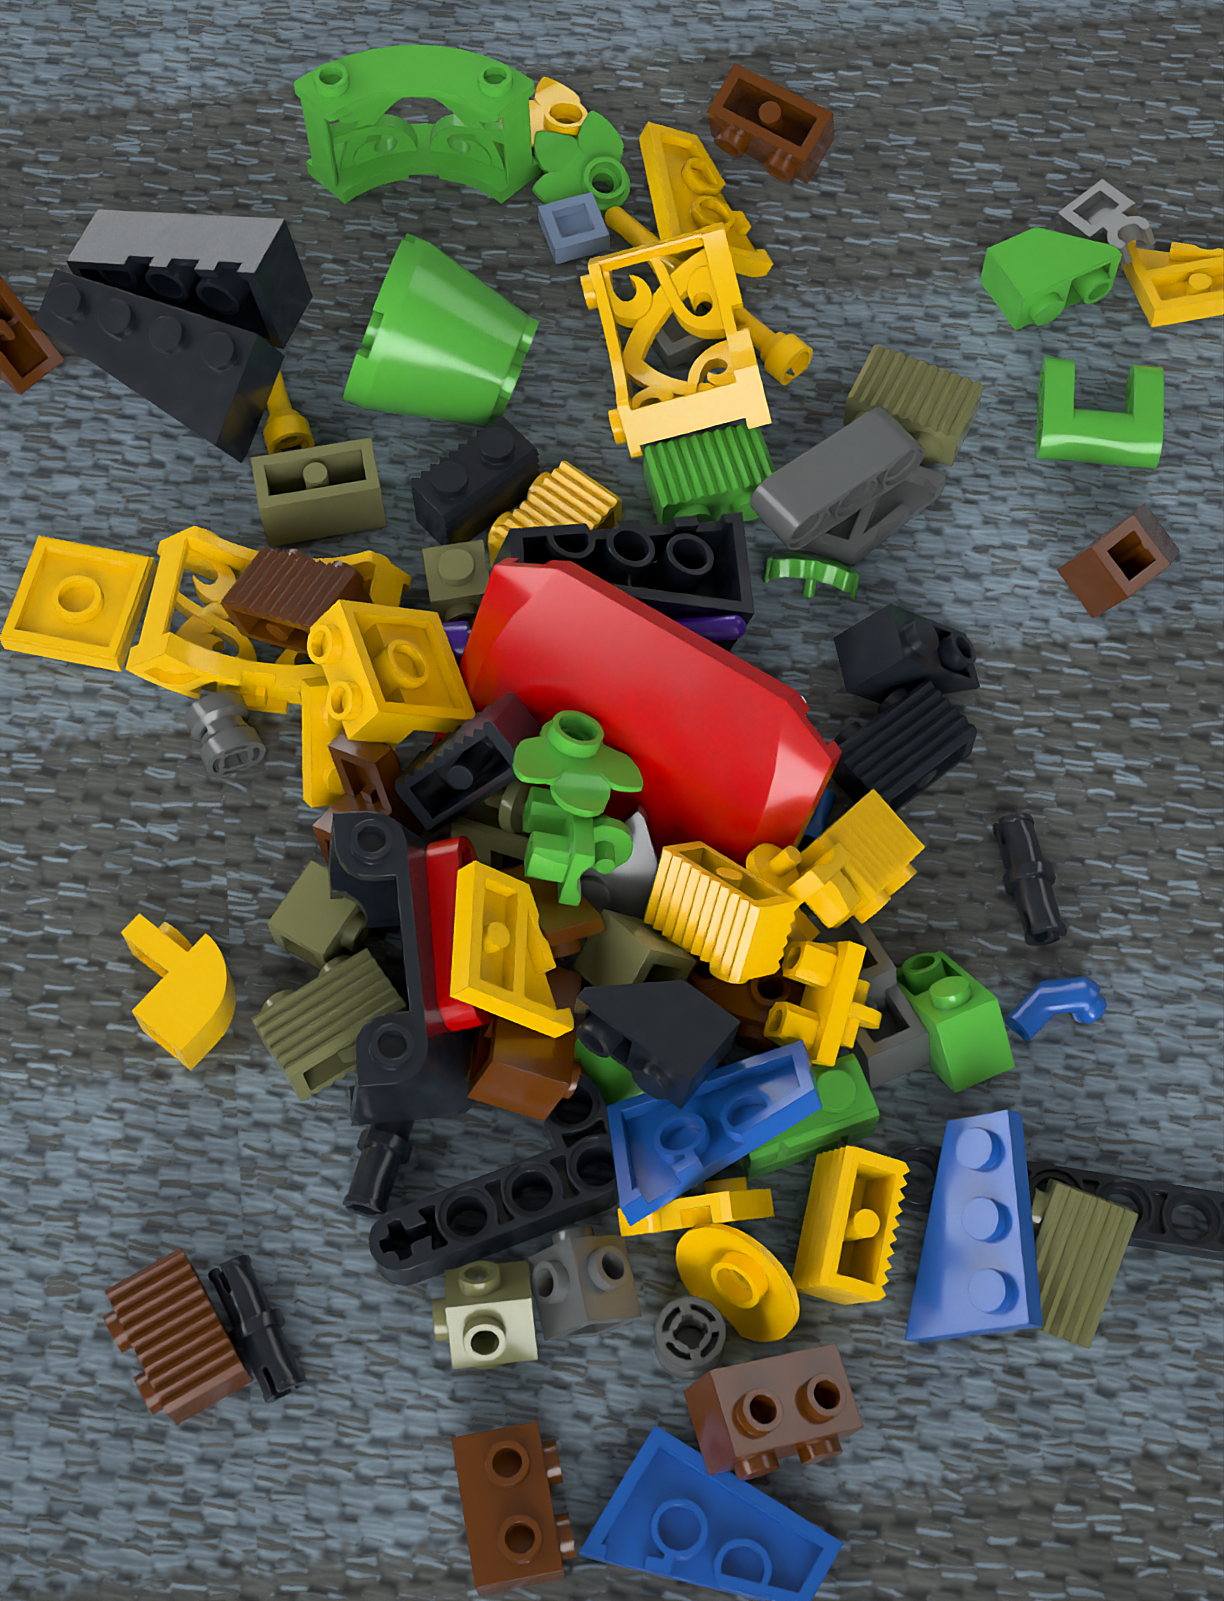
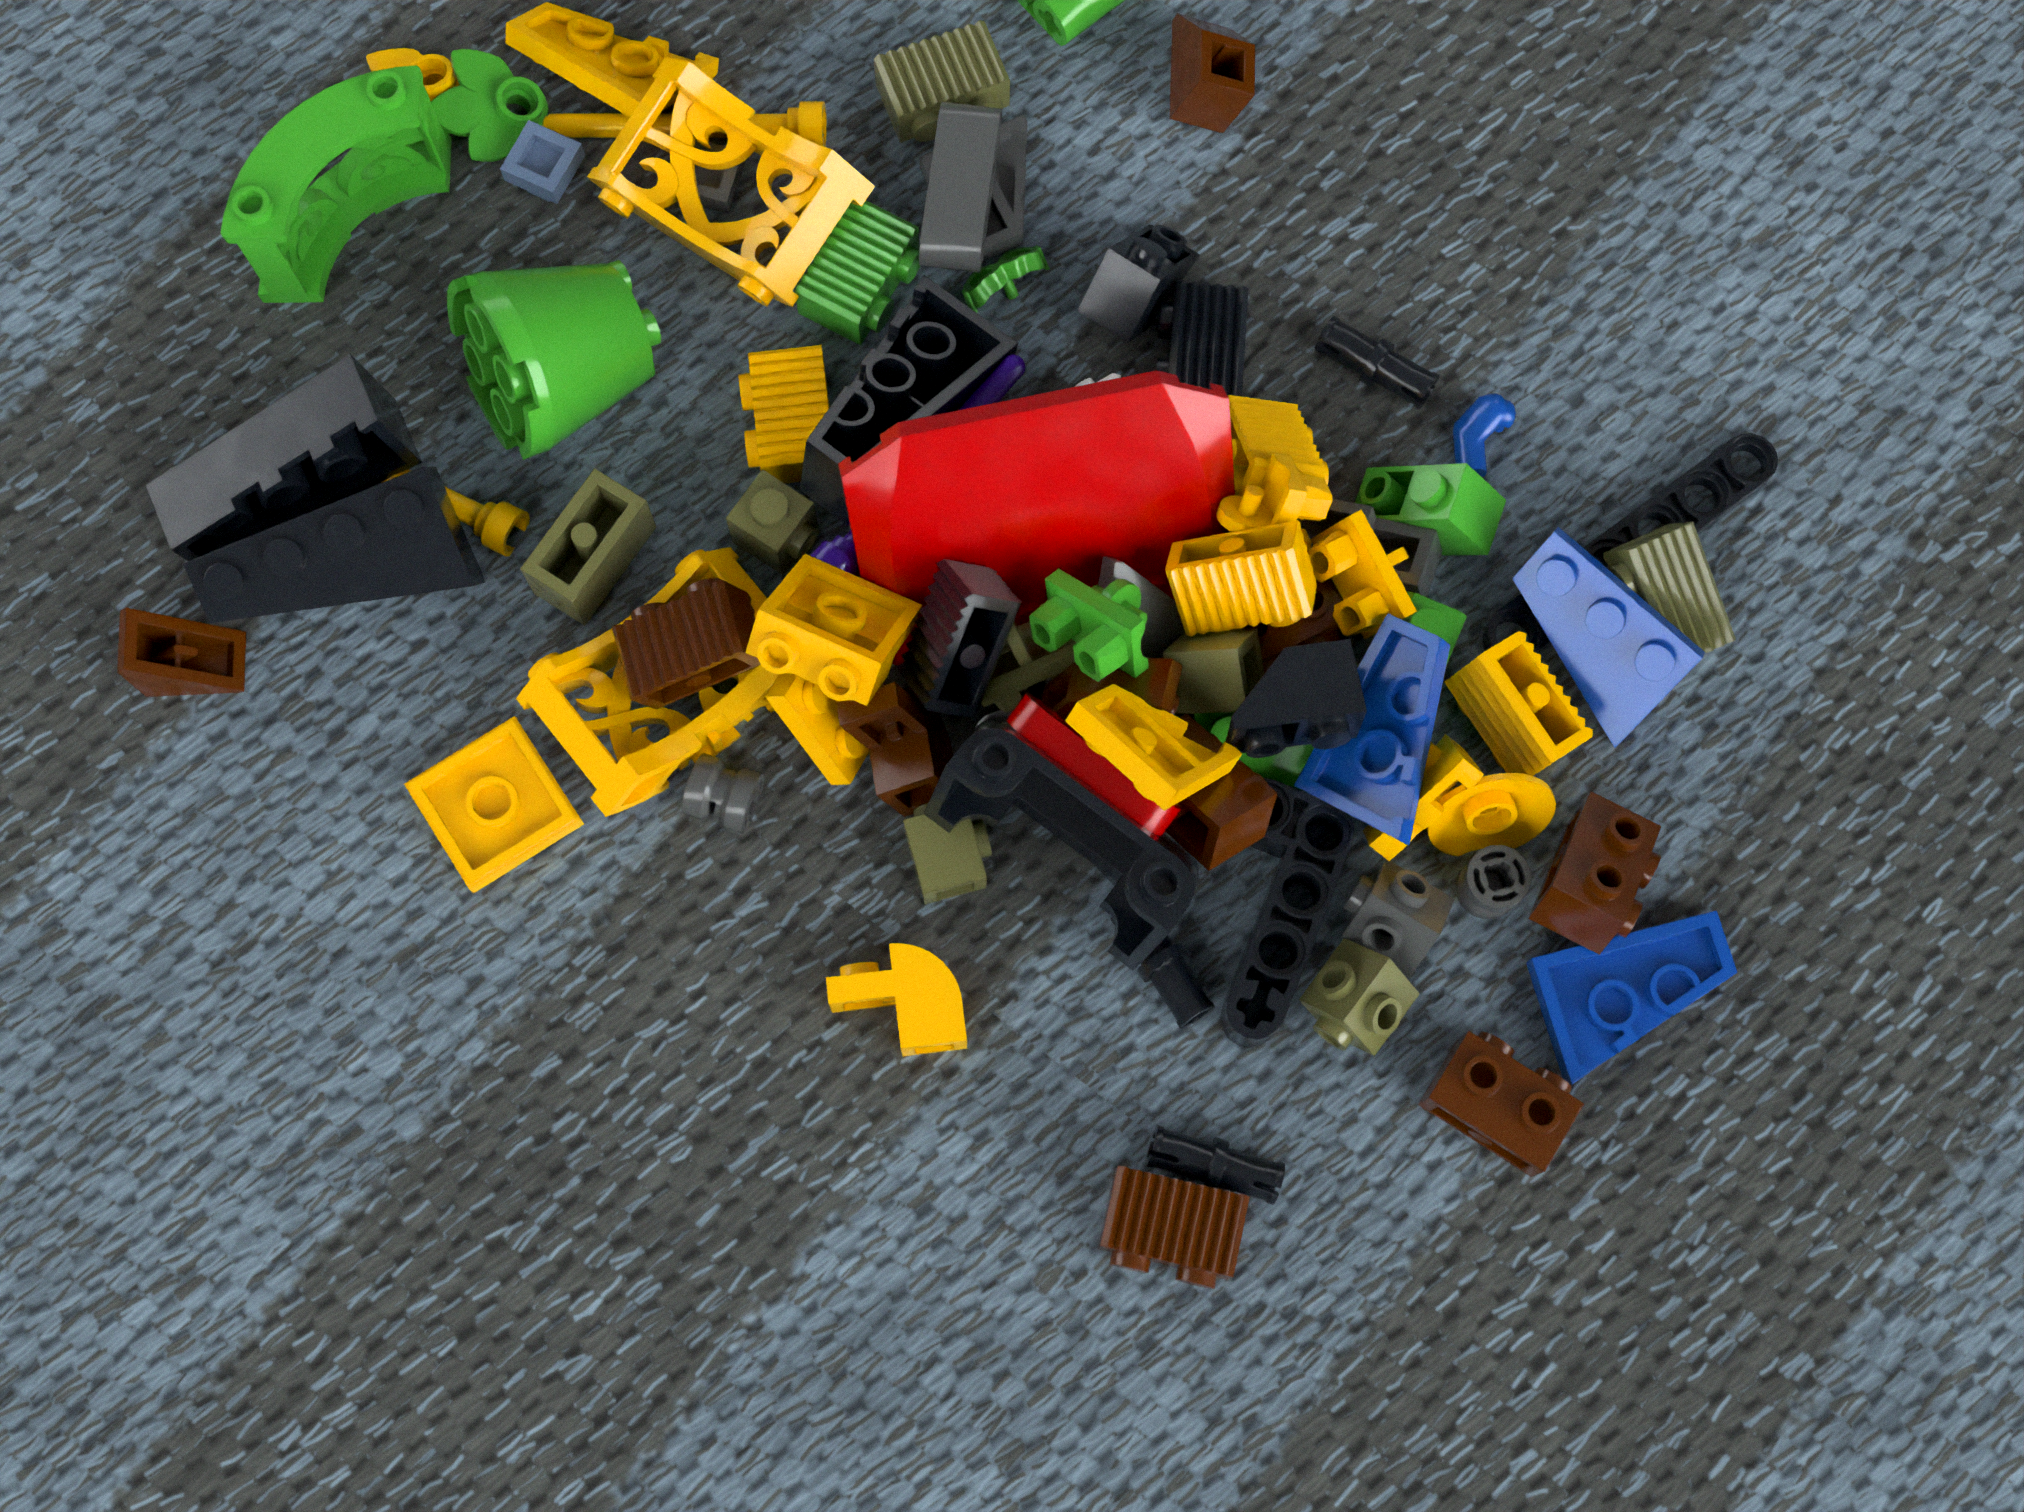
camera: 50 degrees left, 10 degrees up
(317, 1026) = (1036, 916): olive brick -> none
(475, 483) = (696, 432): black brick -> none
(576, 764) = (1049, 568): bright green plate -> none

